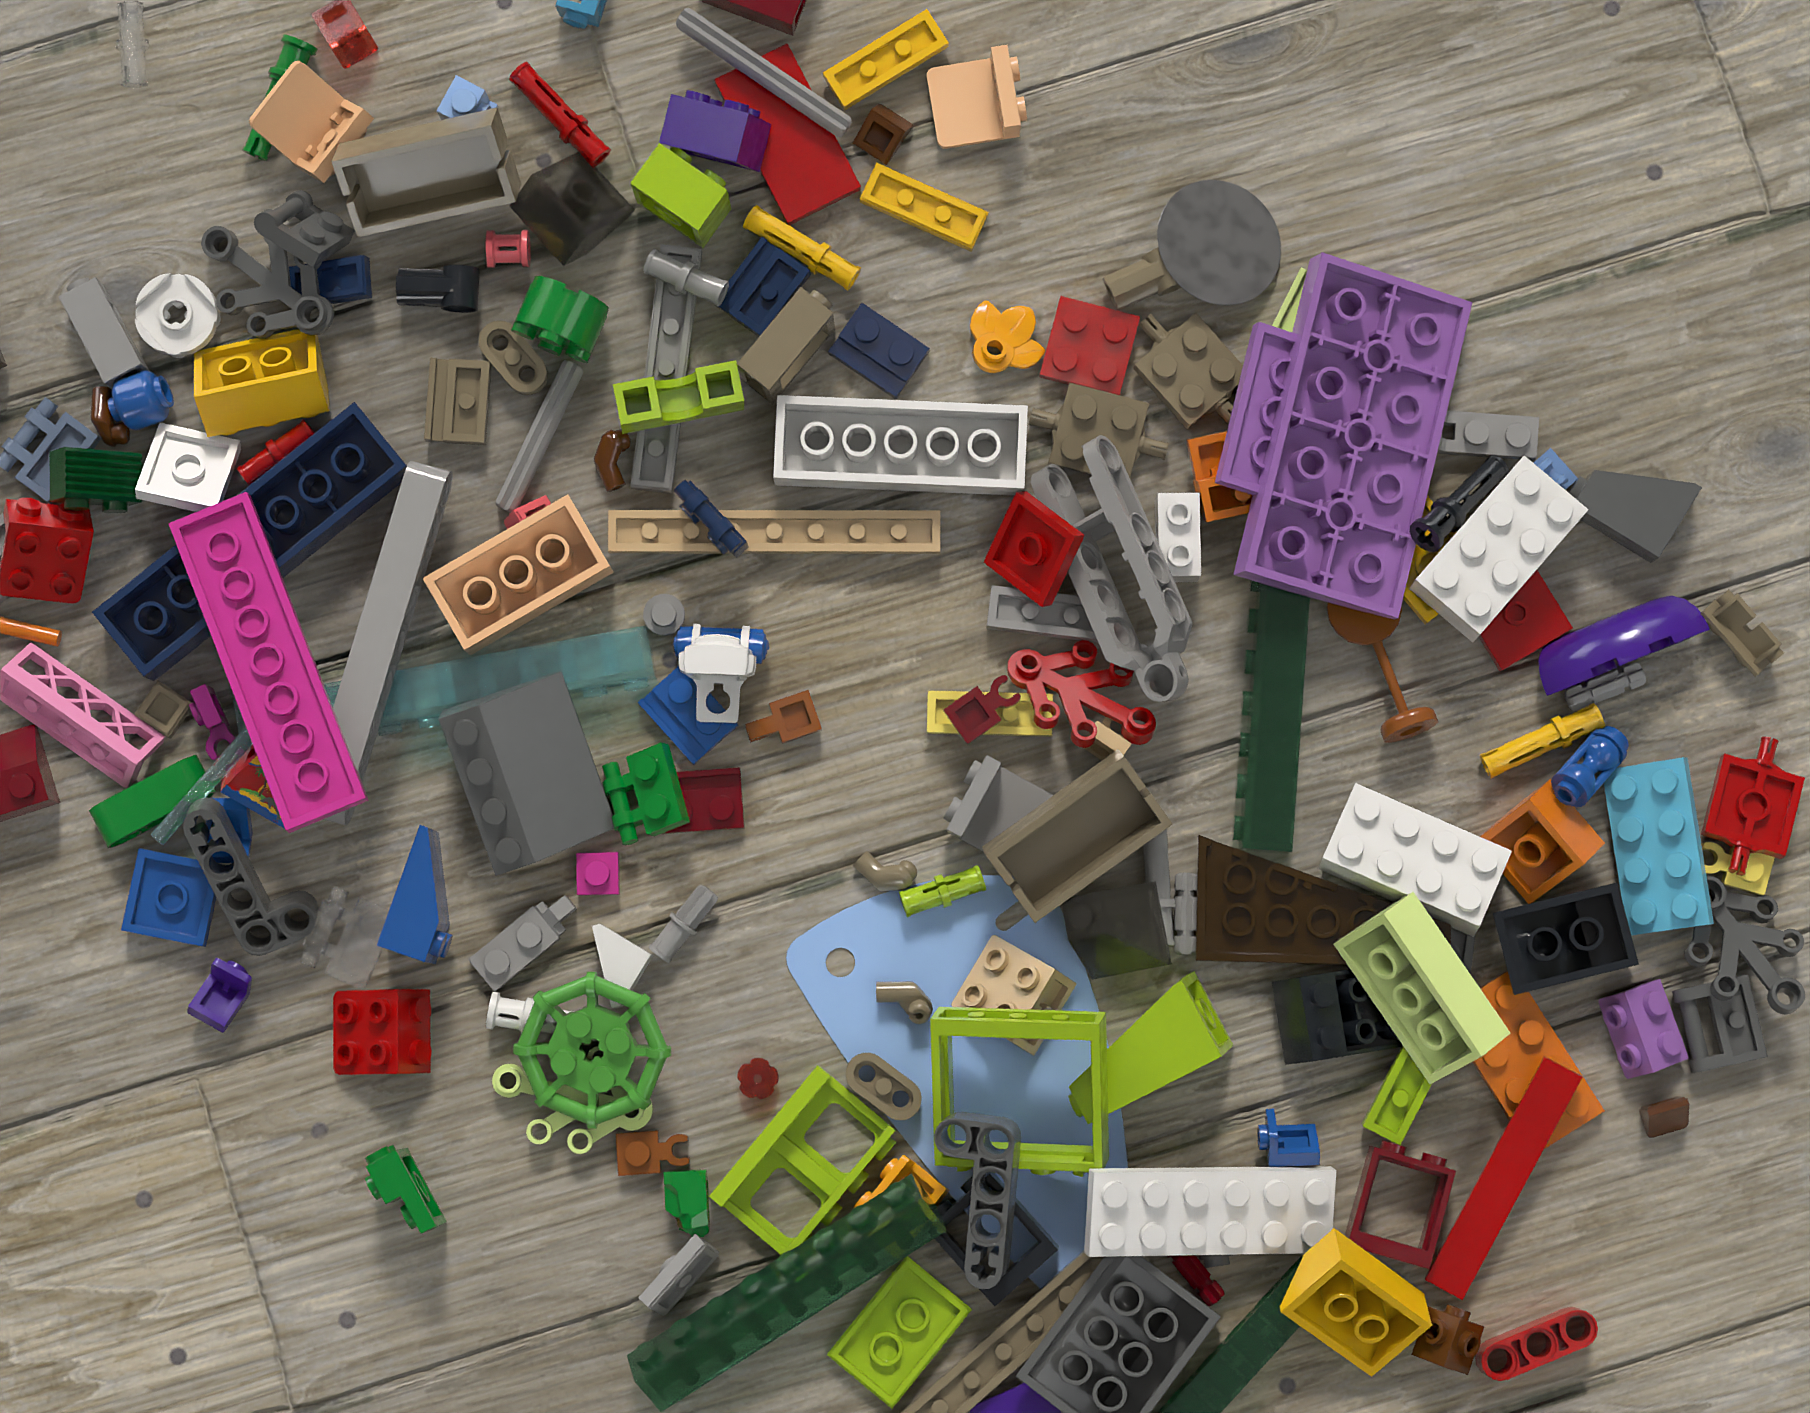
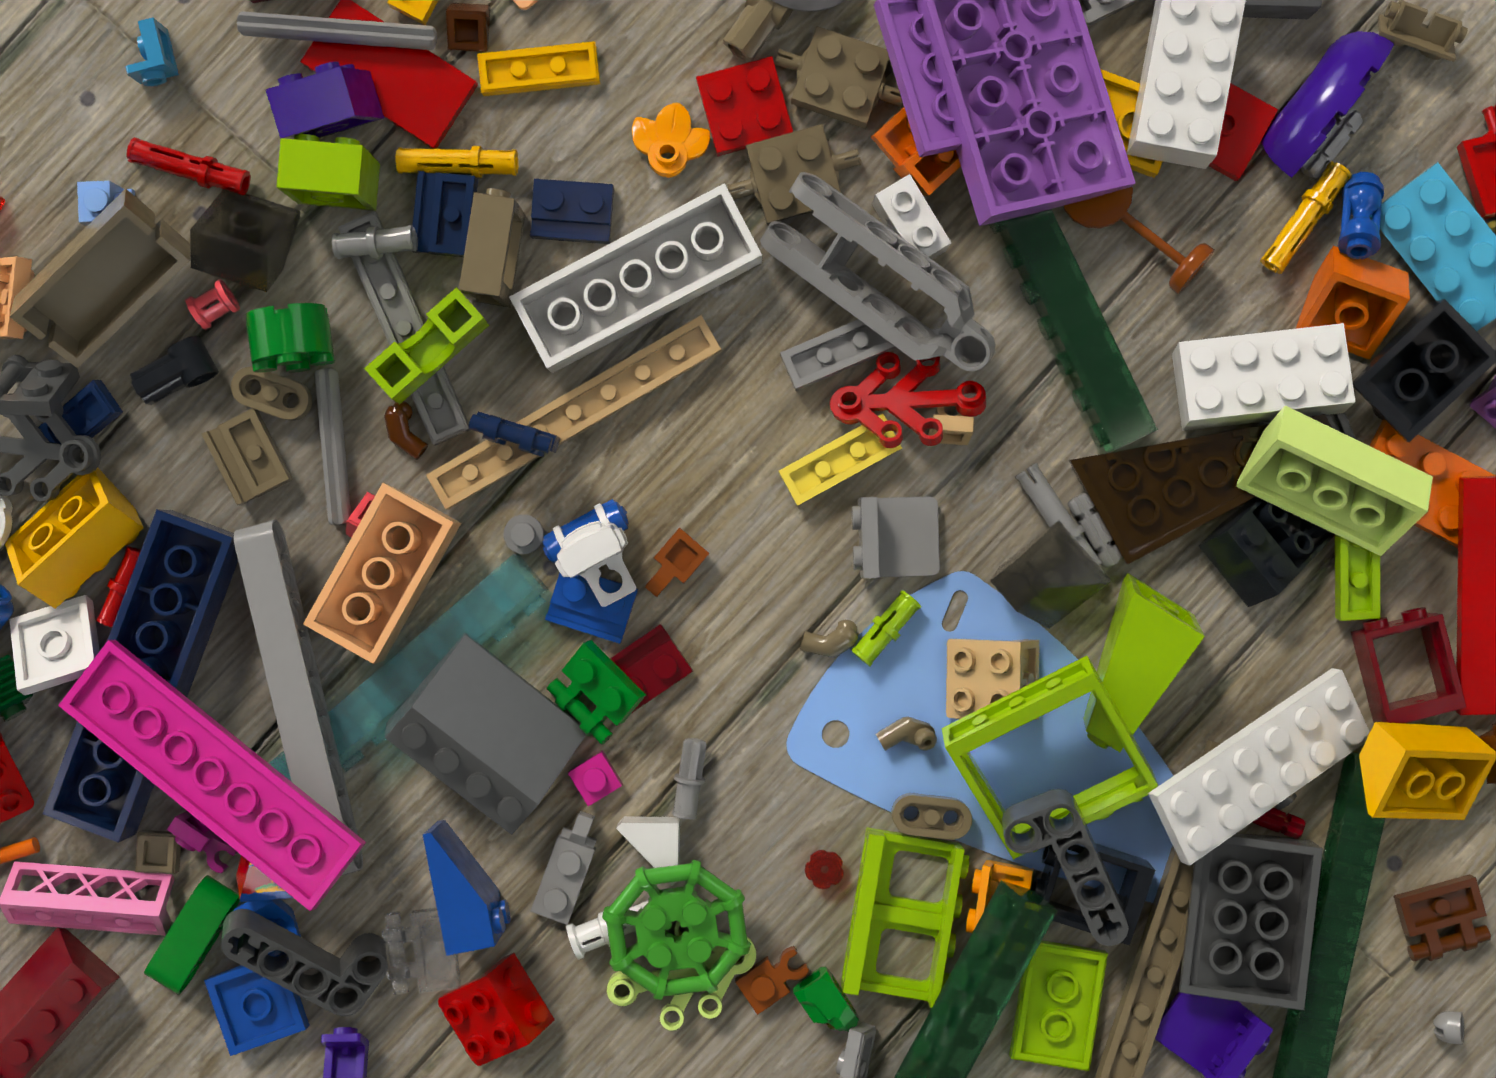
camera: 30 degrees left, 5 degrees up
(203, 786) = (224, 907): clear light blue bar -> none
(976, 713) = (830, 466): dark red plate -> none
(1033, 548) = (798, 301): red plate -> none
(1076, 835) = (974, 520): dark tan piece -> none
(1288, 1143) = (1289, 669): blue bracket -> none
(1439, 524) = (1128, 70): black pin -> none

